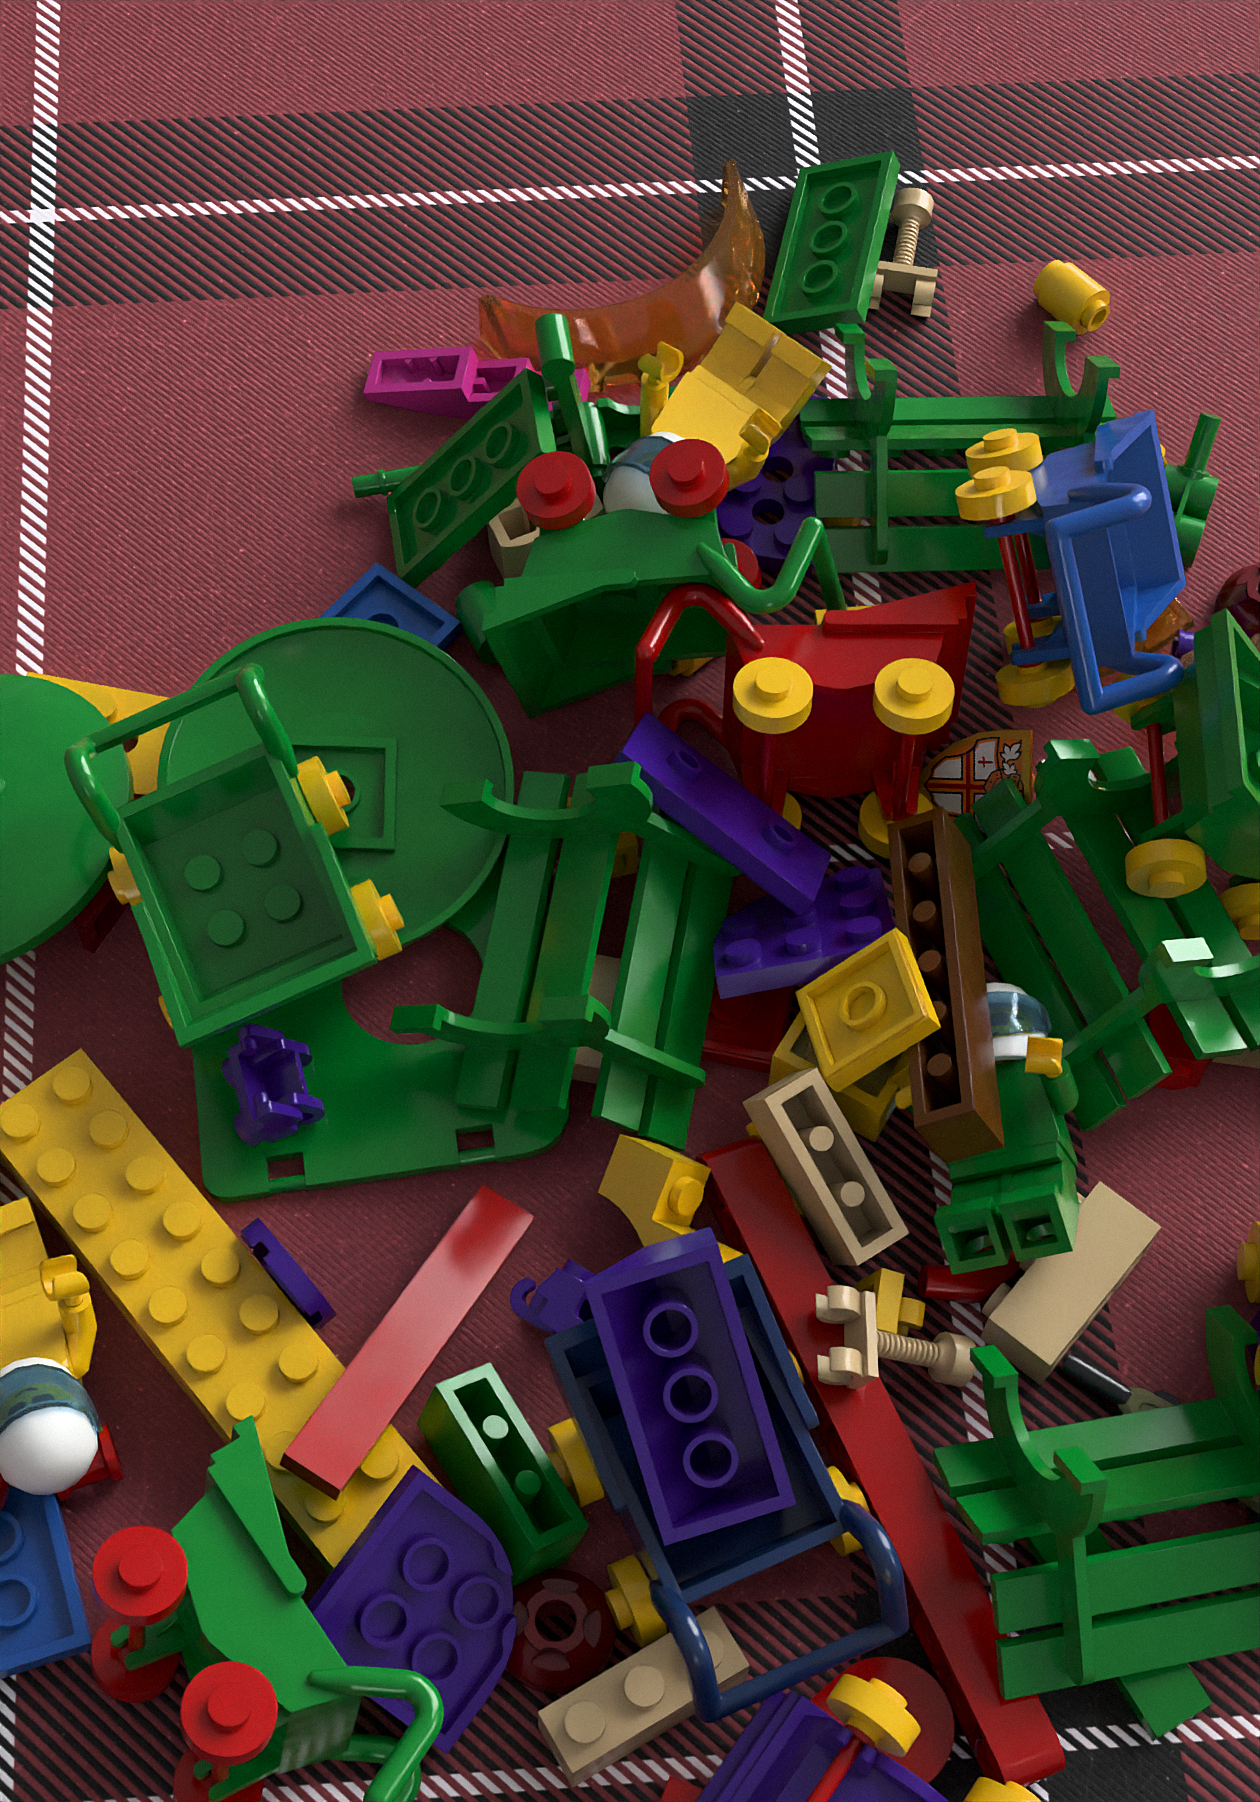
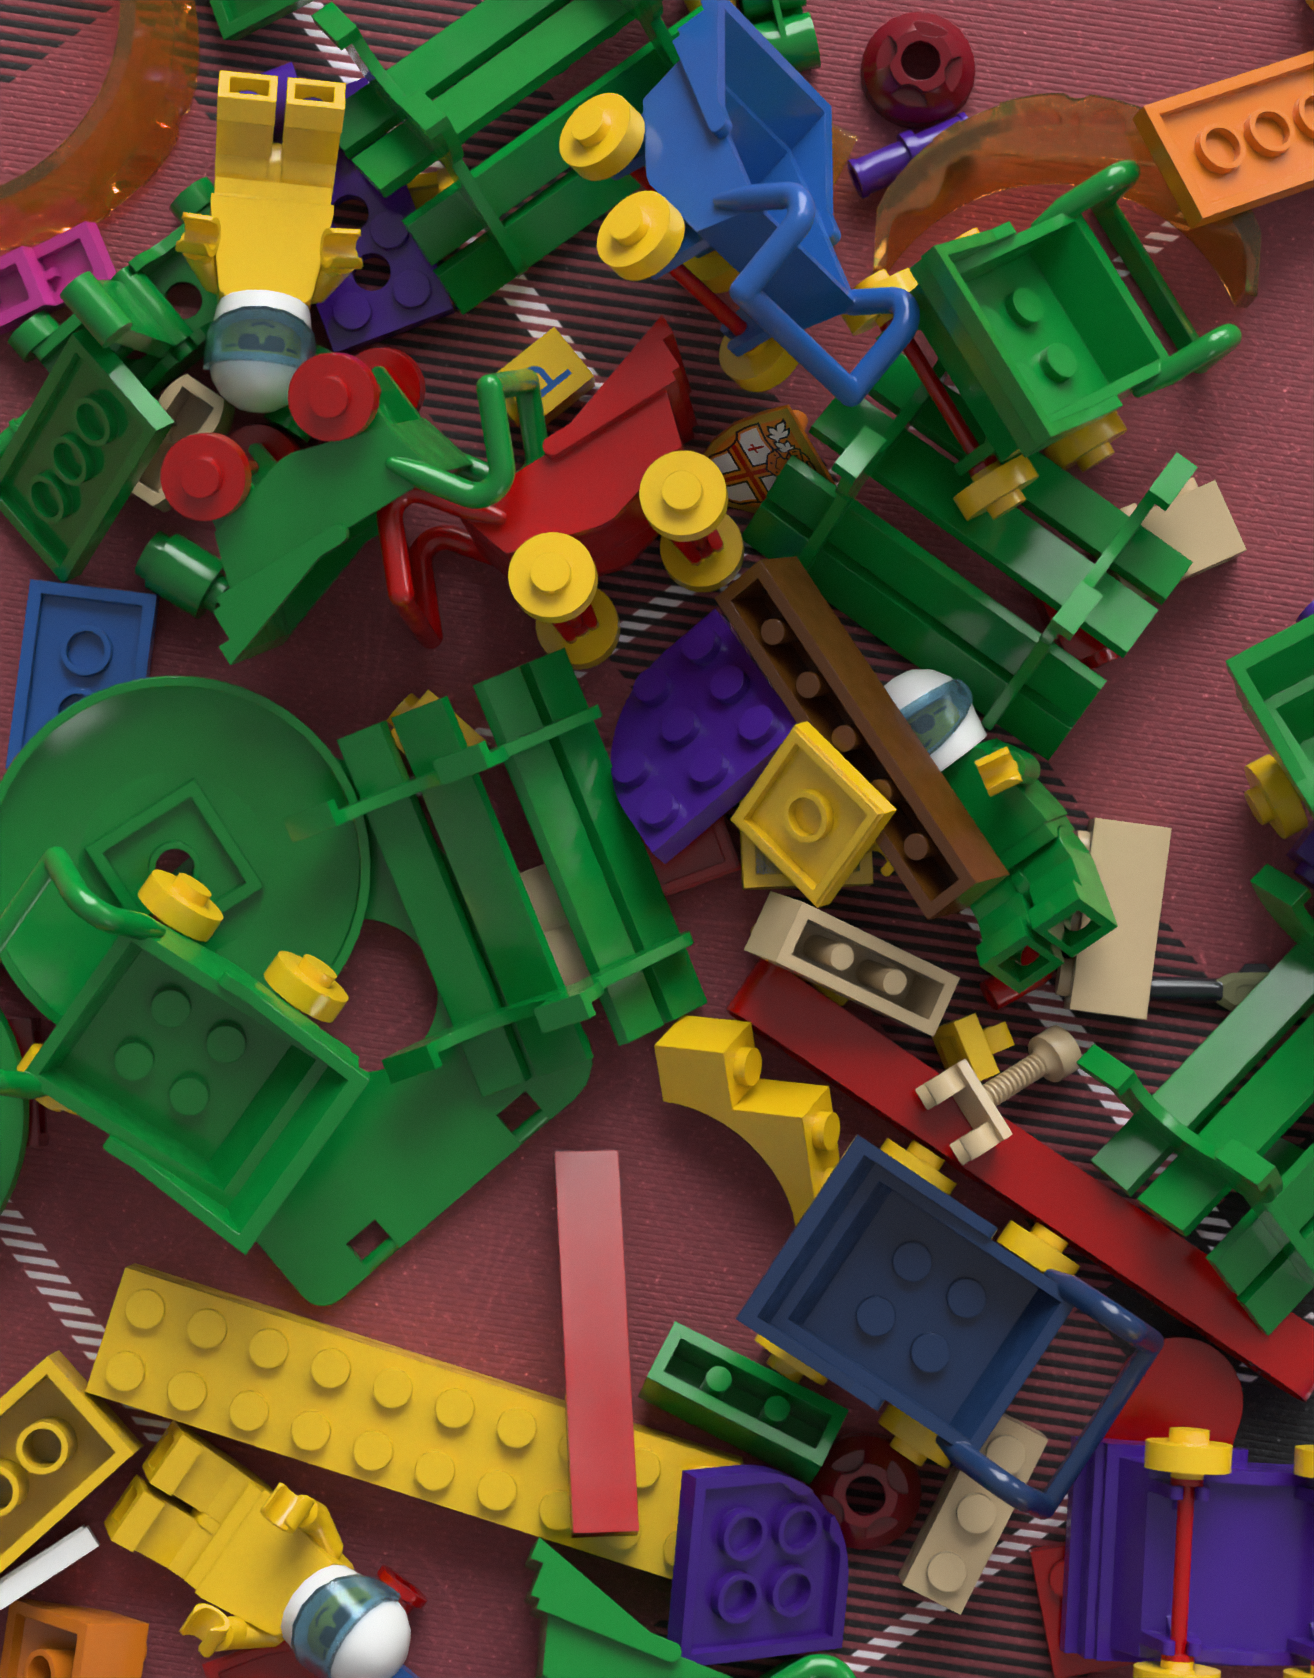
camera: 30 degrees left, 25 degrees up
(270, 1085) = (325, 1201): dark purple piece -> none
(287, 1273) = (451, 1350): dark purple tile -> none
(558, 1301) = (708, 1217): dark purple piece -> none
(688, 1387) = (881, 1284): dark purple slope -> none
(726, 815) = (554, 681): dark purple plate -> none

